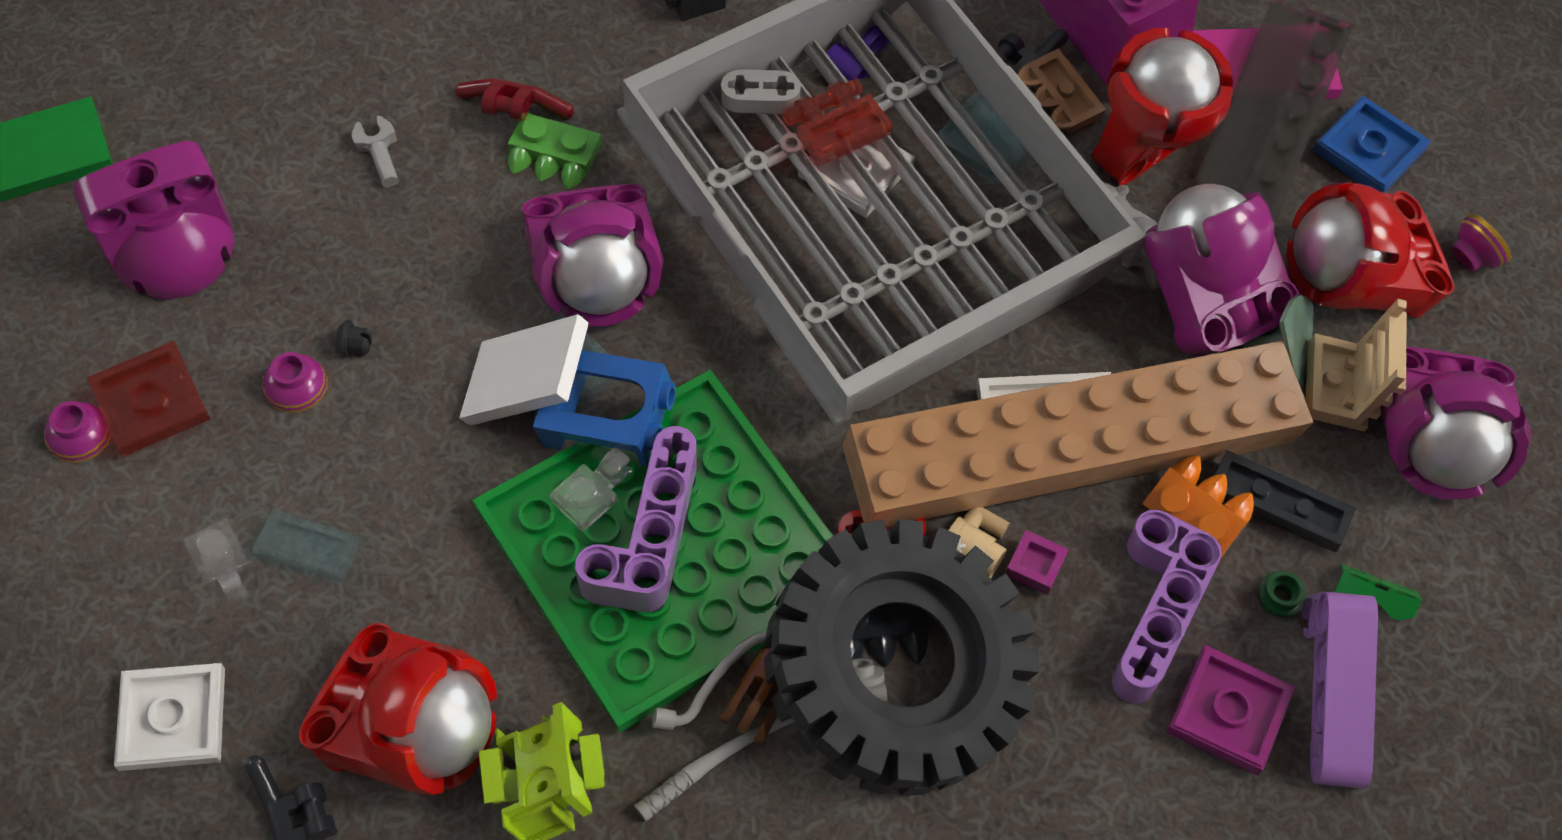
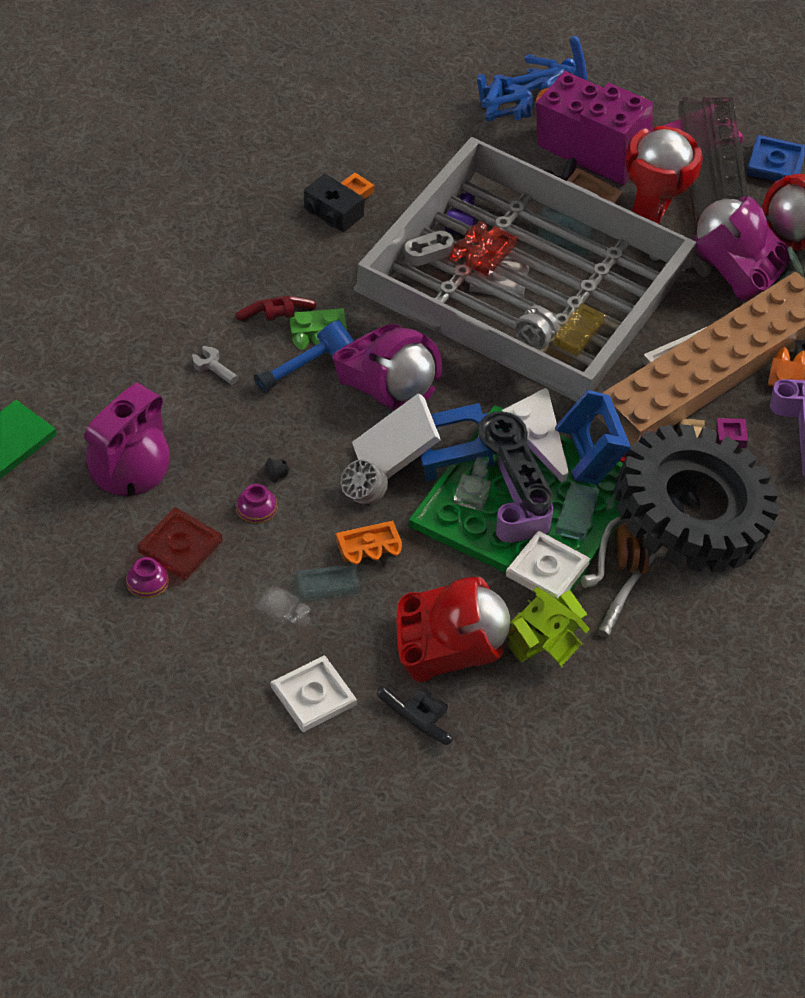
camera: 25 degrees left, 10 degrees down
(395, 511) = (369, 542): none -> orange plate
(449, 416) = (365, 483): none -> light grey wheel
(549, 175) = (331, 339): none -> blue piece
(614, 669) = (547, 565): none -> white tile
(655, 471) = (516, 457): none -> black beam
(716, 596) = (577, 511): none -> clear light blue tile
(743, 426) = (542, 438): none -> white wing
(791, 525) = (599, 458): none -> blue panel
(830, 275) = (536, 327): none -> light grey wheel
(901, 301) = (579, 329): none -> clear yellow tile

